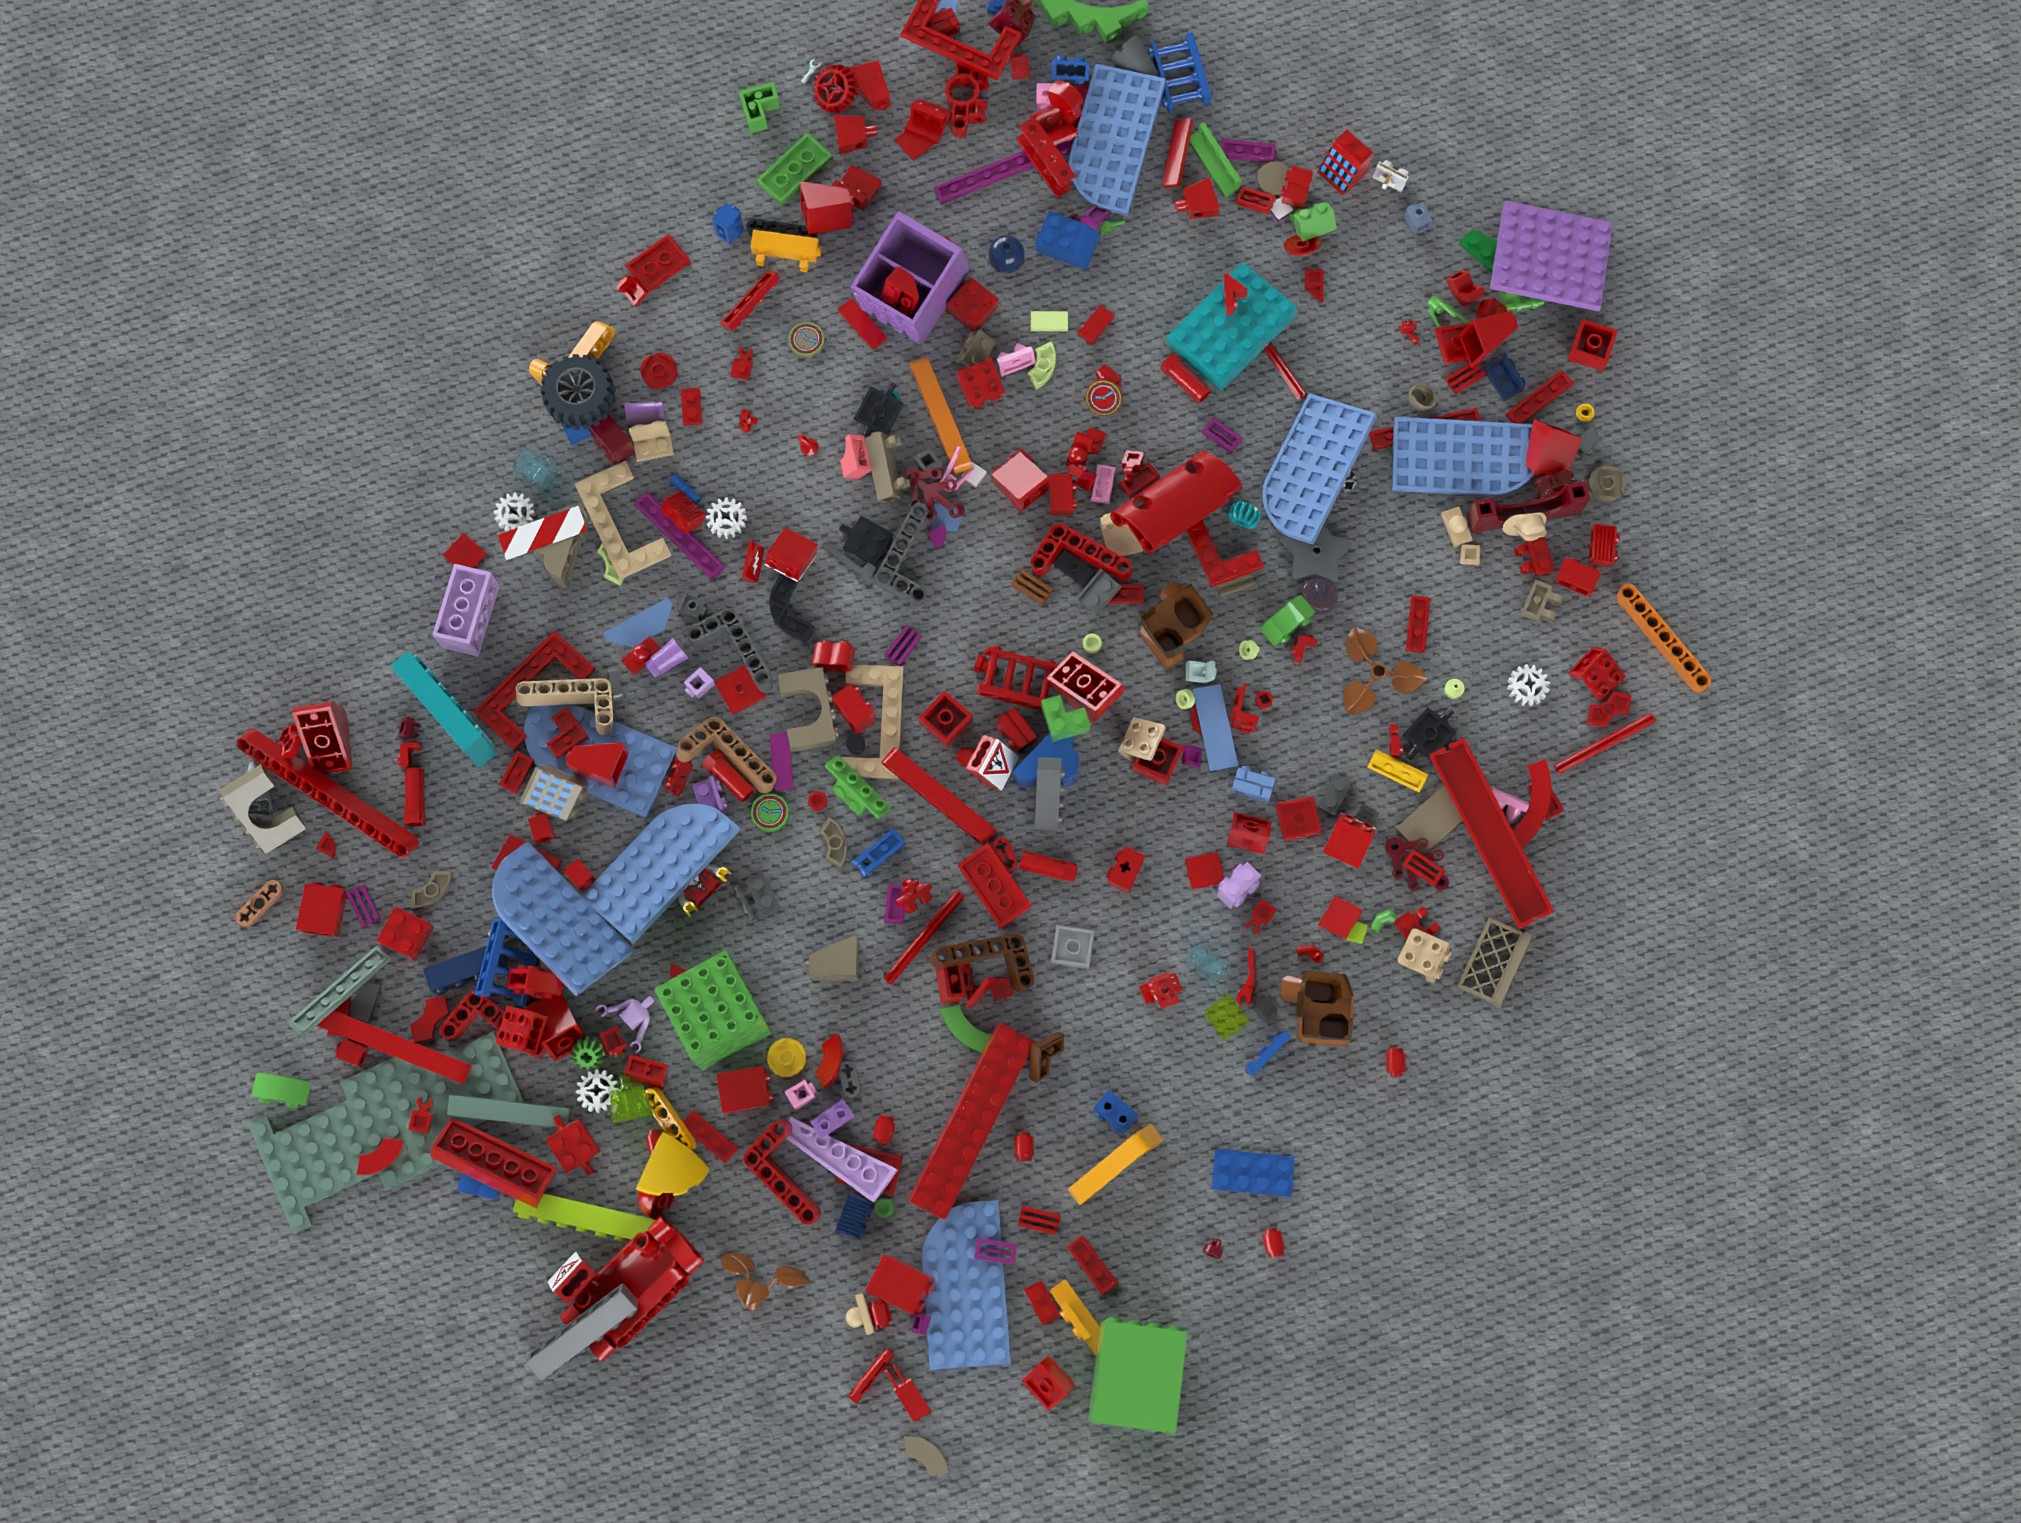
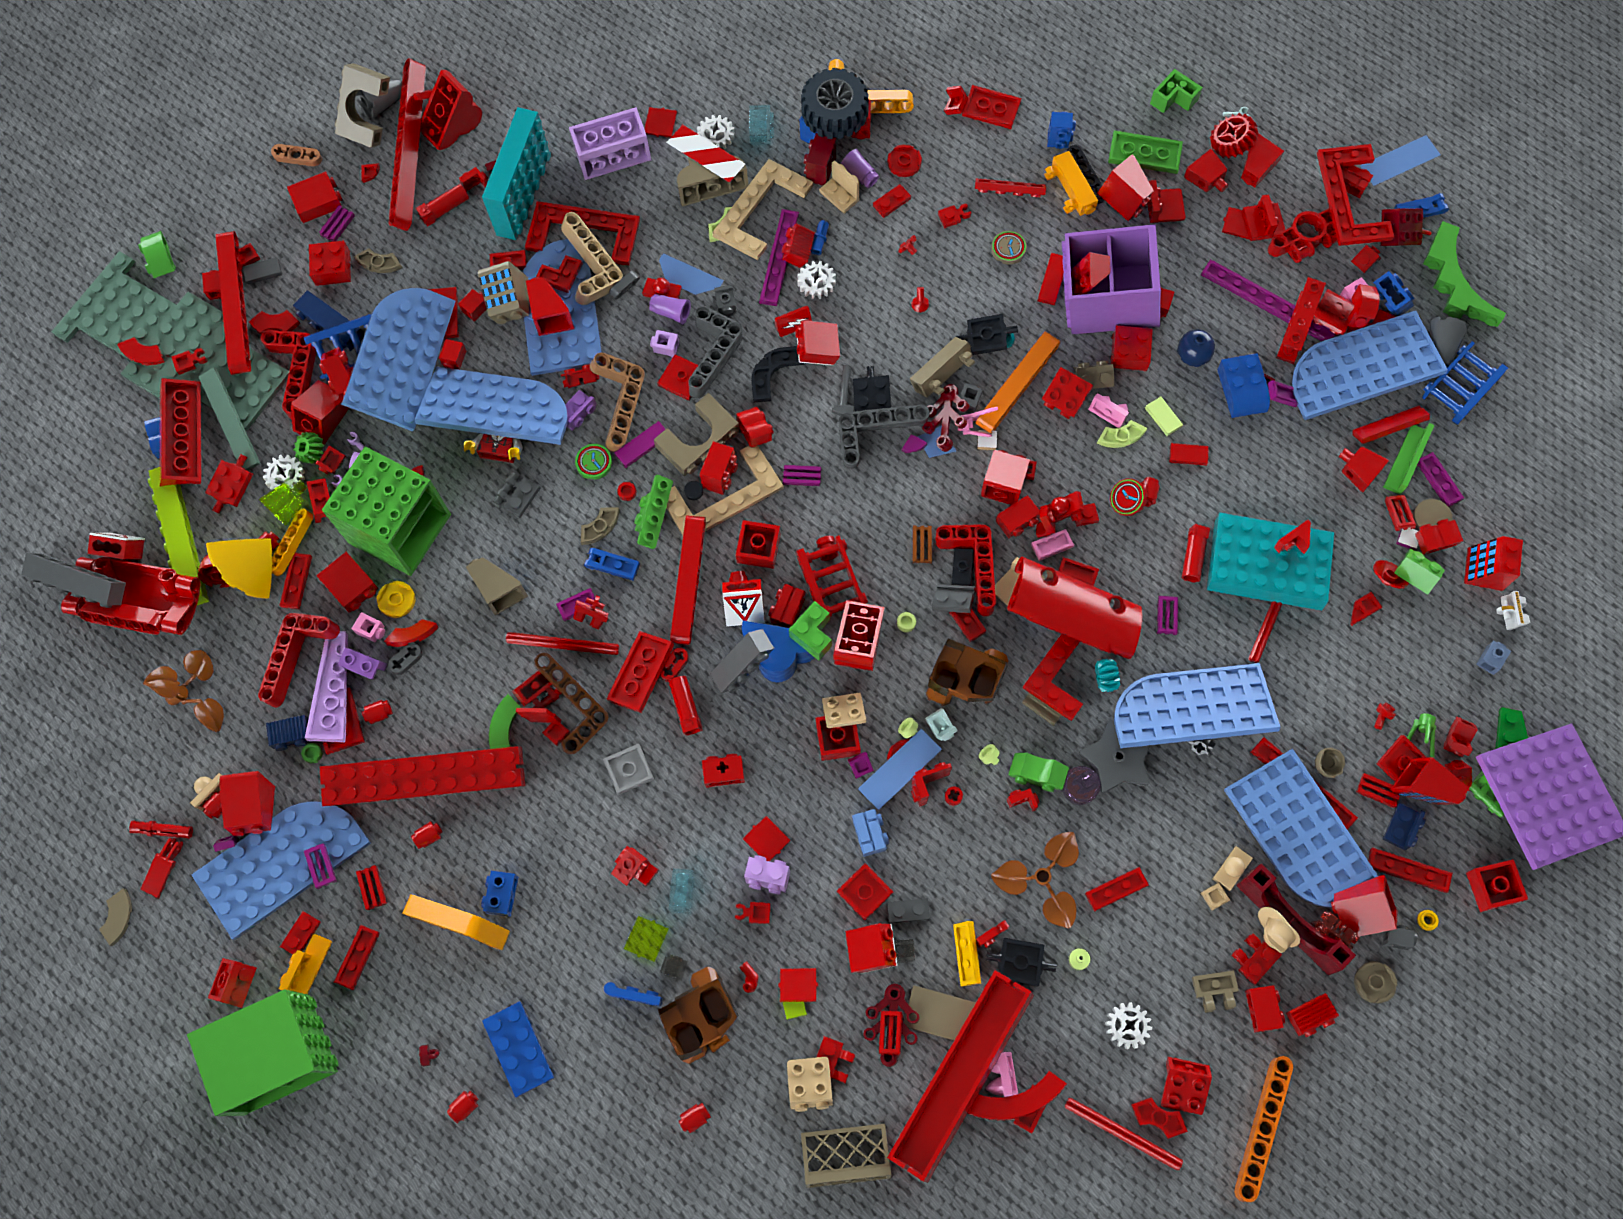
camera: 60 degrees right, 5 degrees down
(339, 991) = (253, 243): sand green tile -> none
(521, 1030) = (291, 383): red brick -> none
(728, 775) = (603, 410): red piece -> none
(856, 458) = (934, 340): coral arch -> none
(1041, 1054) = (515, 798): reddish brown brick -> none
(1107, 225) = (1282, 409): bright green hand -> none
(1132, 461) = (1088, 554): red plate -> none
(1249, 833) = (824, 855): red bracket -> none
(1249, 988) = (690, 940): red arm -> none
(1387, 915) = (821, 1023): bright green arm -> none

